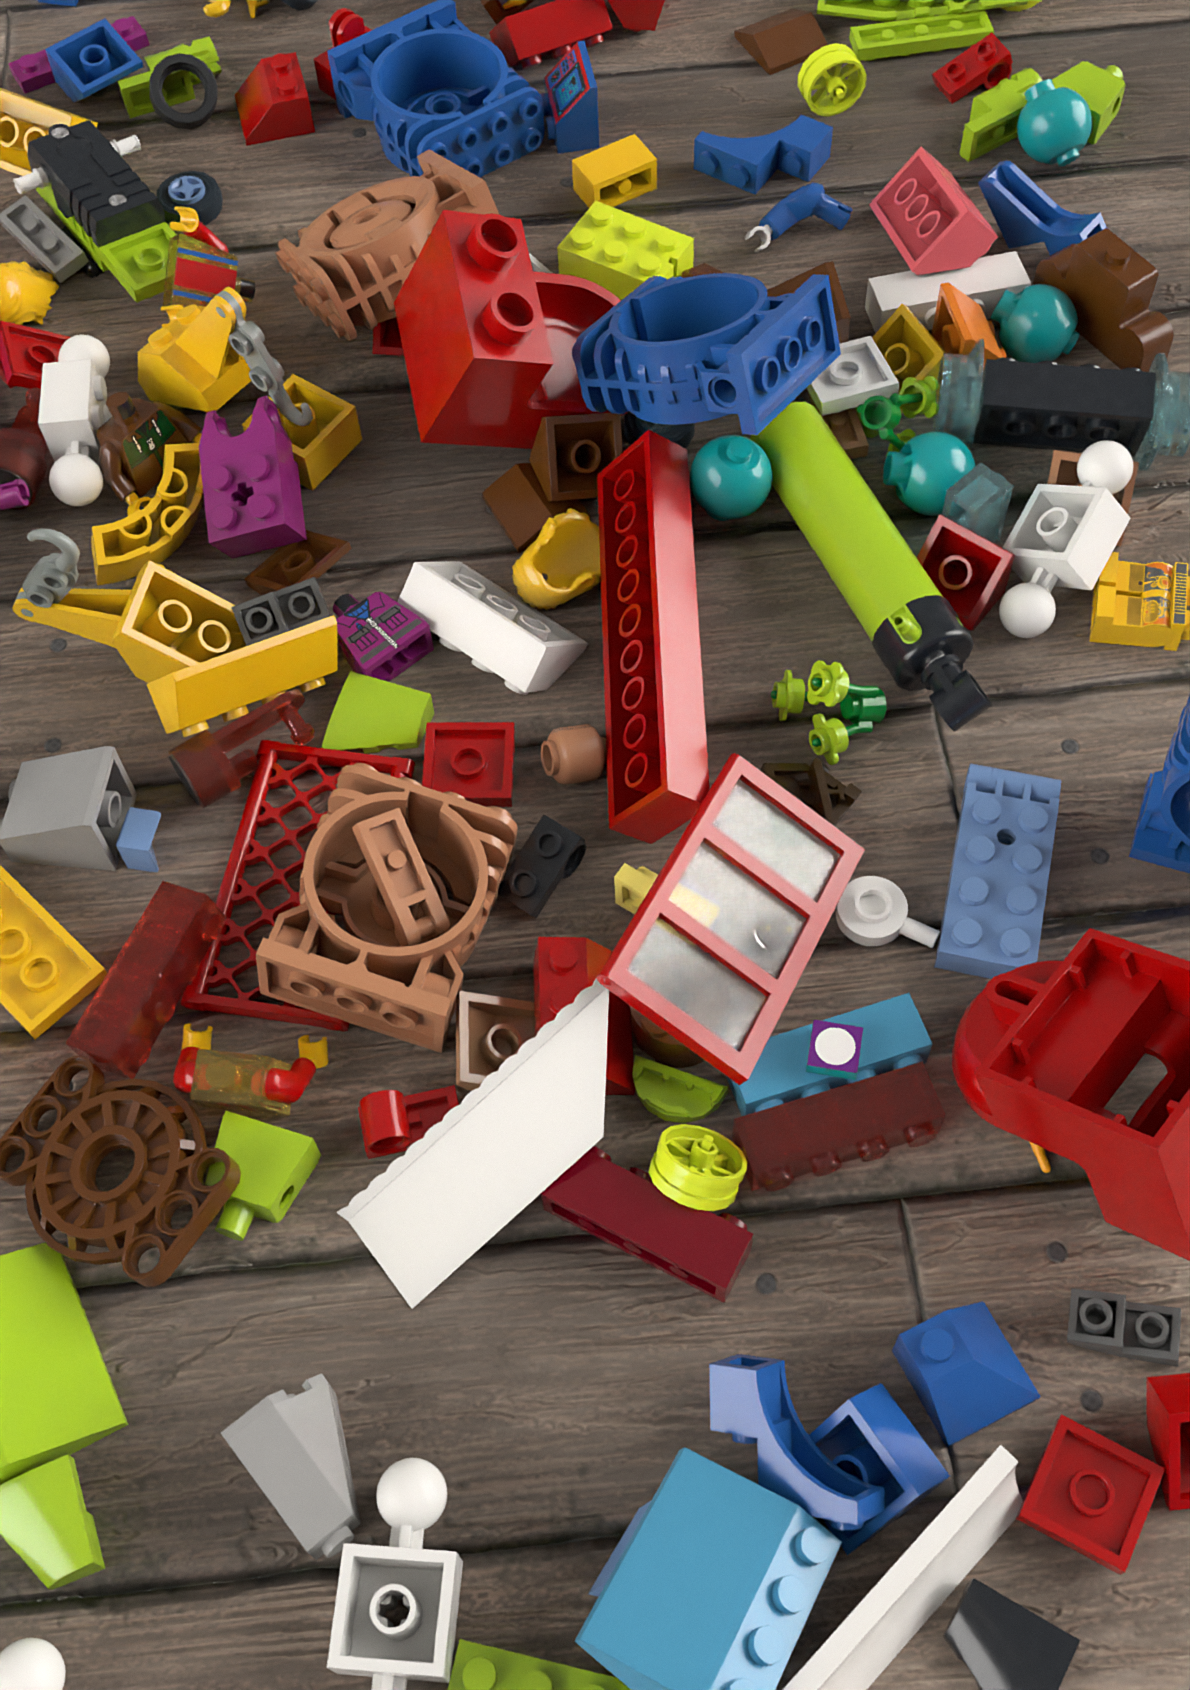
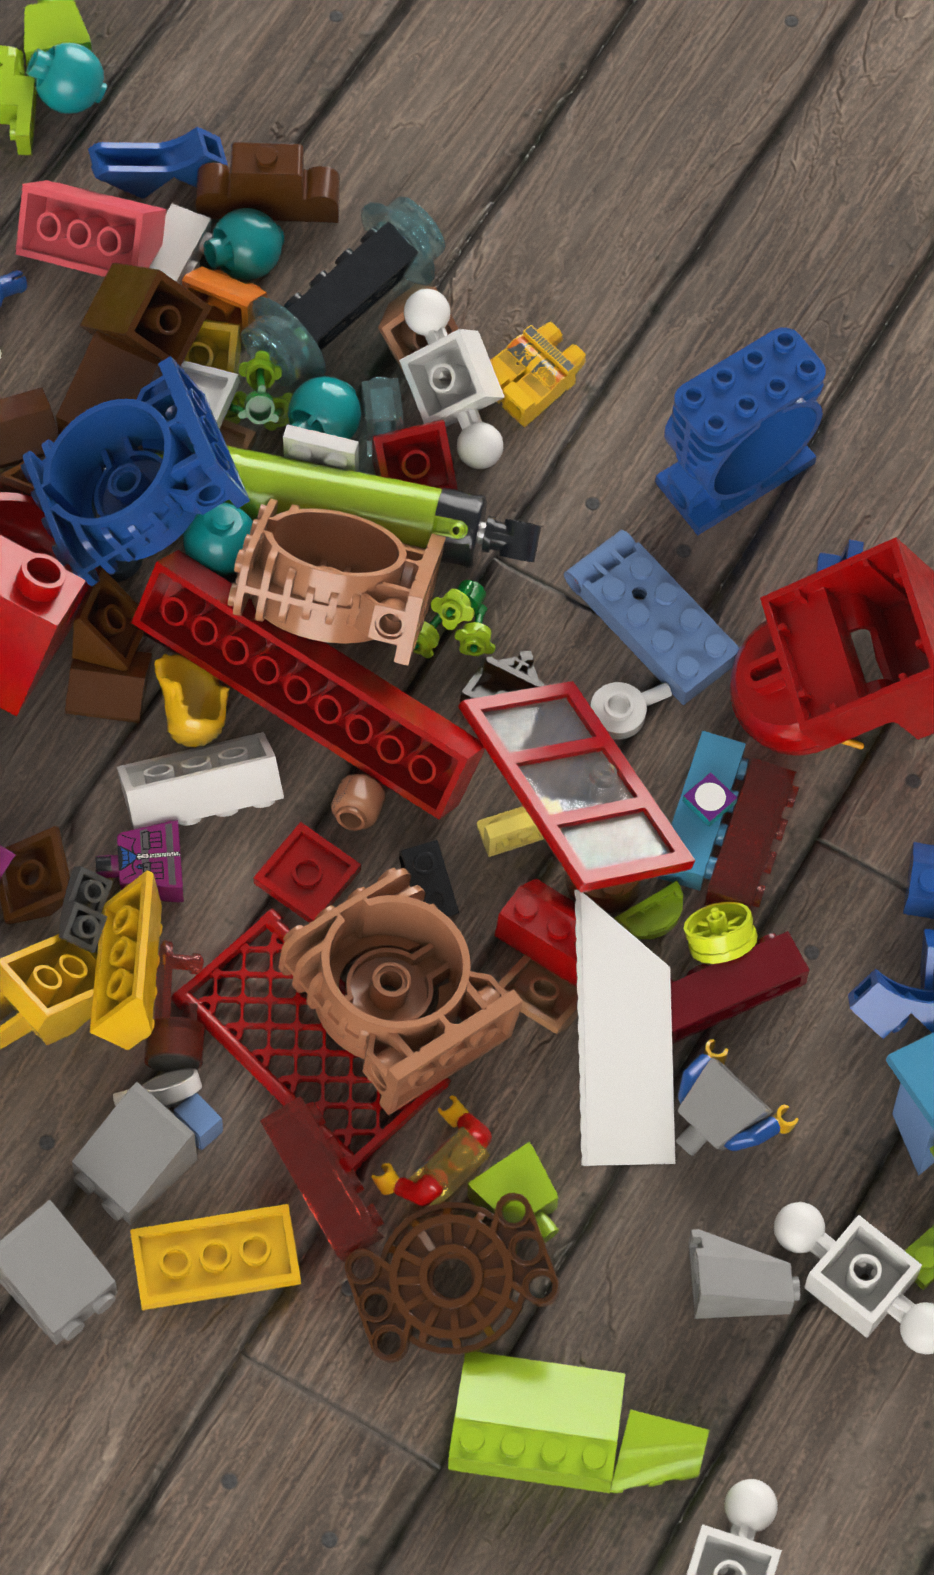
camera: 60 degrees left, 5 degrees up
(156, 792) = (170, 1087): none -> white piece
(377, 716) = (215, 907): lime slope -> none
(396, 1121) = (552, 1082): red plate -> none
(401, 877) = (393, 964): nougat plate -> none
(498, 1310) = (723, 1107): none -> light grey torso
(761, 568) = (336, 578): none -> nougat brick
(884, 285) = (146, 312): none -> reddish brown slope
(890, 487) = (320, 448): none -> white plate

